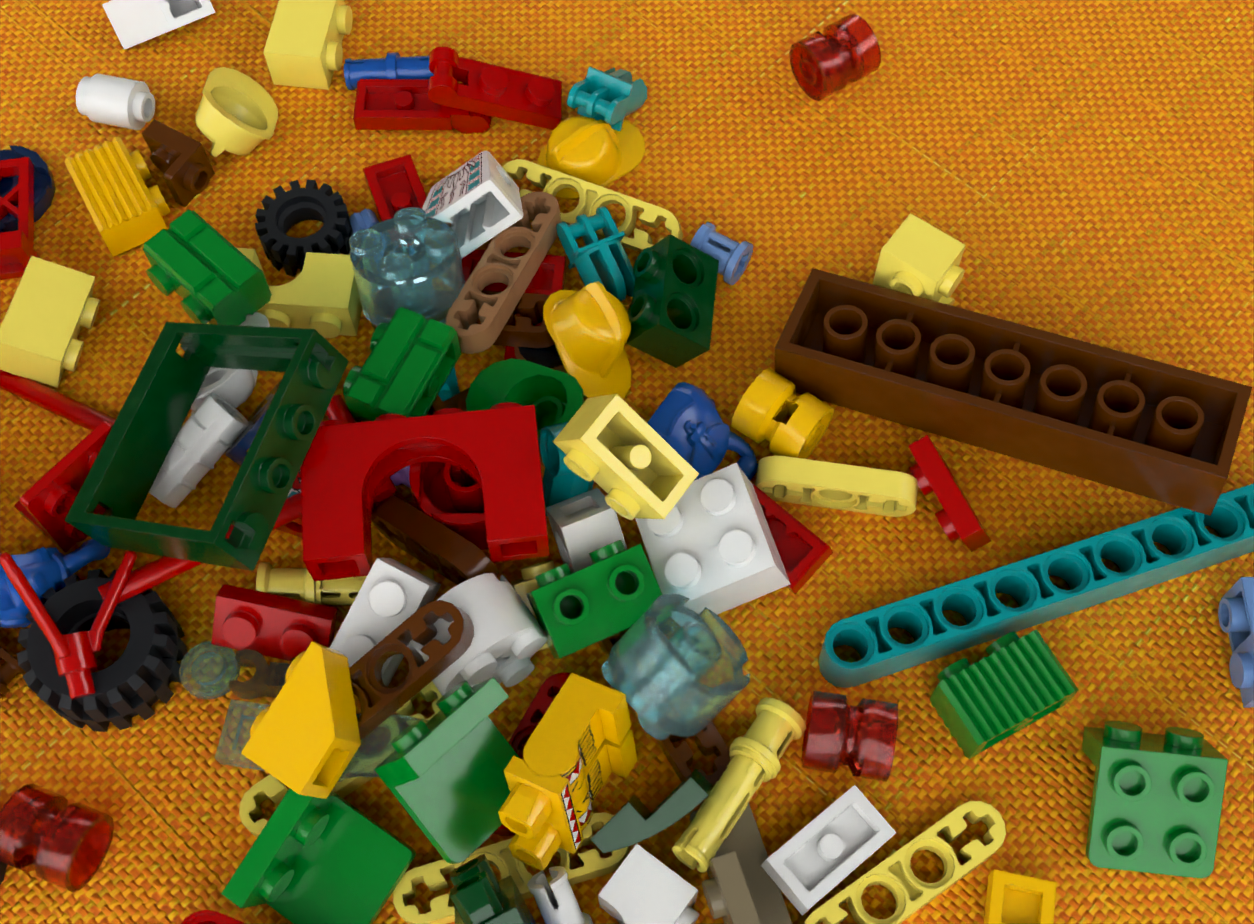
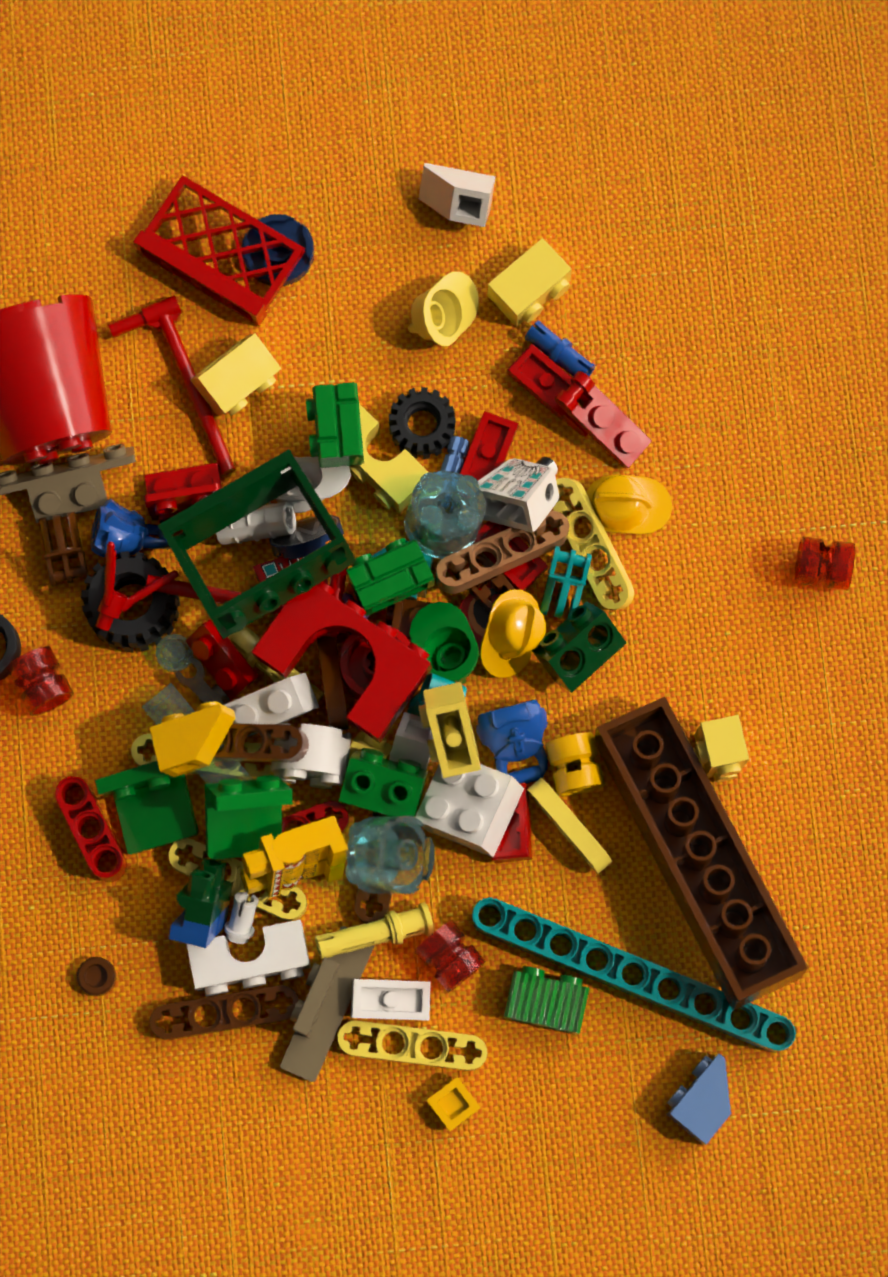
camera: 40 degrees right, 15 degrees up
(115, 101) = (382, 242): white brick -> none
(117, 196) = (335, 314): yellow brick -> none
(181, 160) = (388, 312): reddish brown bracket -> none
(607, 95) = (663, 480): teal arm -> none
(636, 822) = (312, 910): dark green slope -> none
(732, 255) = (638, 622): medium blue bush -> none
(957, 515) = (625, 872): red plate -> none
(1154, 800) = (568, 1112): green bracket -> none

